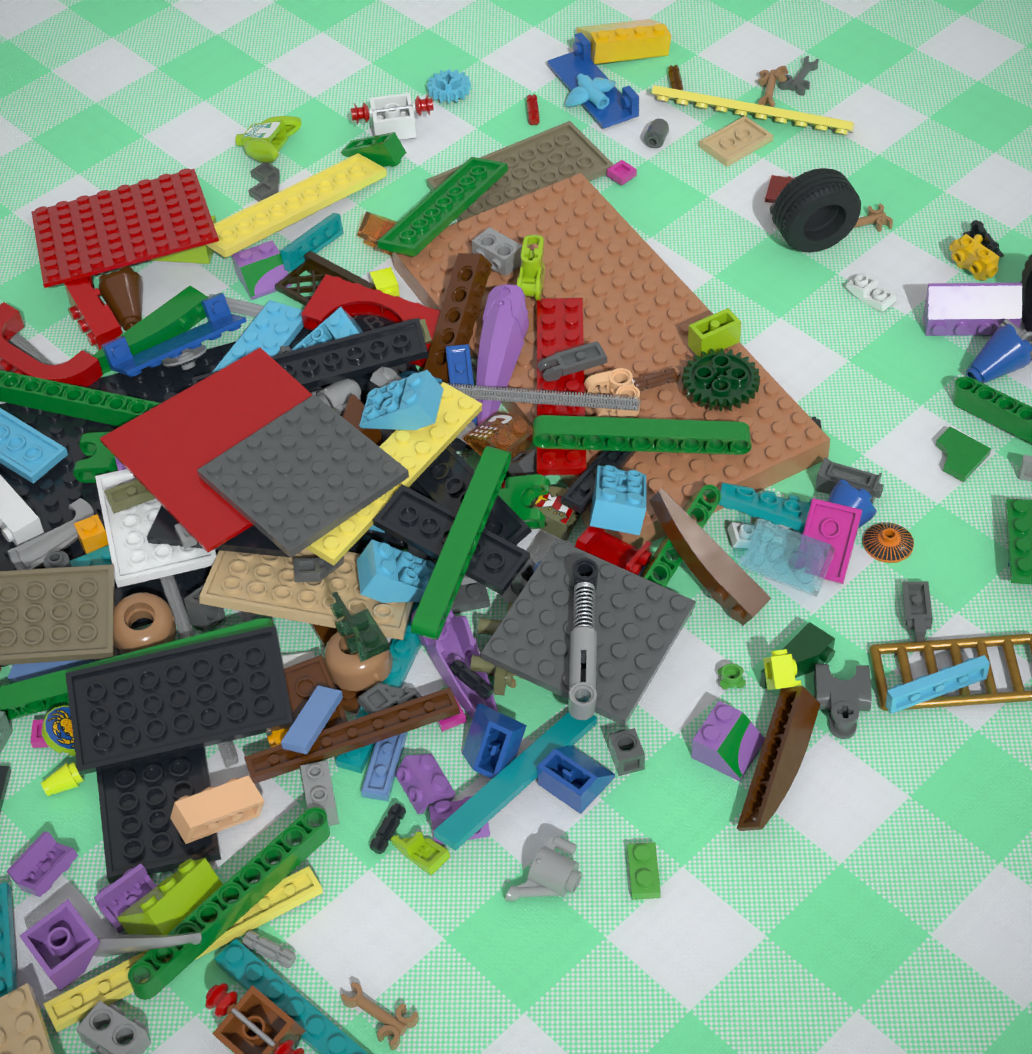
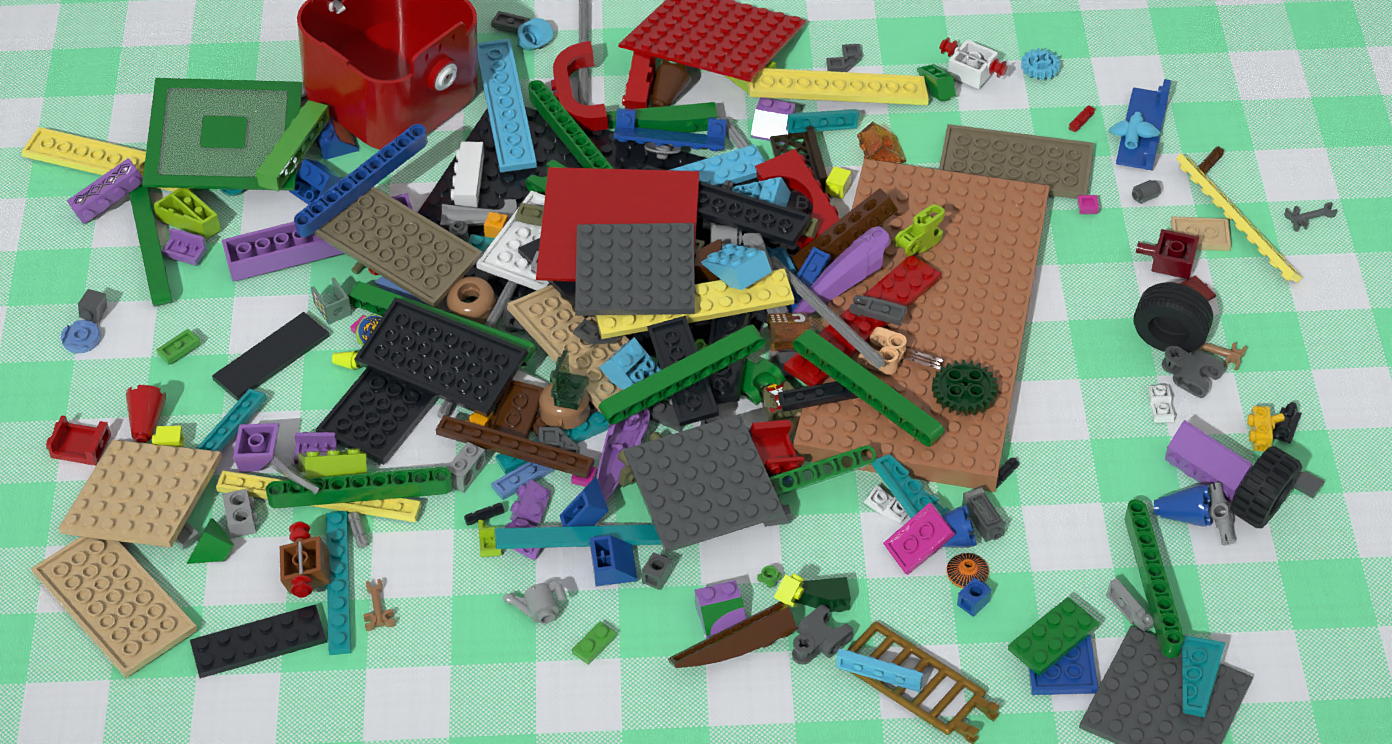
camera: 40 degrees right, 0 degrees up
(41, 865) = (291, 397): medium lavender bracket -> none
(216, 809) = (402, 433): light nougat brick -> none
(265, 139) = (876, 26): lime torso -> none
(312, 720) = (499, 420): medium blue tile -> none
(442, 206) = (927, 149): green plate -> none
(471, 679) = (611, 463): black axle -> none
(498, 250) = (918, 199): light grey brick -> none
(583, 641) = (683, 482): piece -> none
(618, 500) = (808, 417): medium azure slope -> none
(627, 40) = (1206, 105): yellow slope -> none
(709, 562) = (822, 500): slope -> none
(714, 332) = (993, 353): lime brick -> none
(740, 166) = (1172, 254): none -> dark red brick
(770, 79) = (1277, 203): medium nougat bar -> none
(788, 557) = (880, 530): clear light blue brick -> none
(864, 249) = (1190, 369): none -> dark grey piece
(917, 608) = (930, 621): dark grey hinge -> none
(927, 559) = (974, 597): none -> blue brick
(961, 453) = (1086, 551): green tile -> none

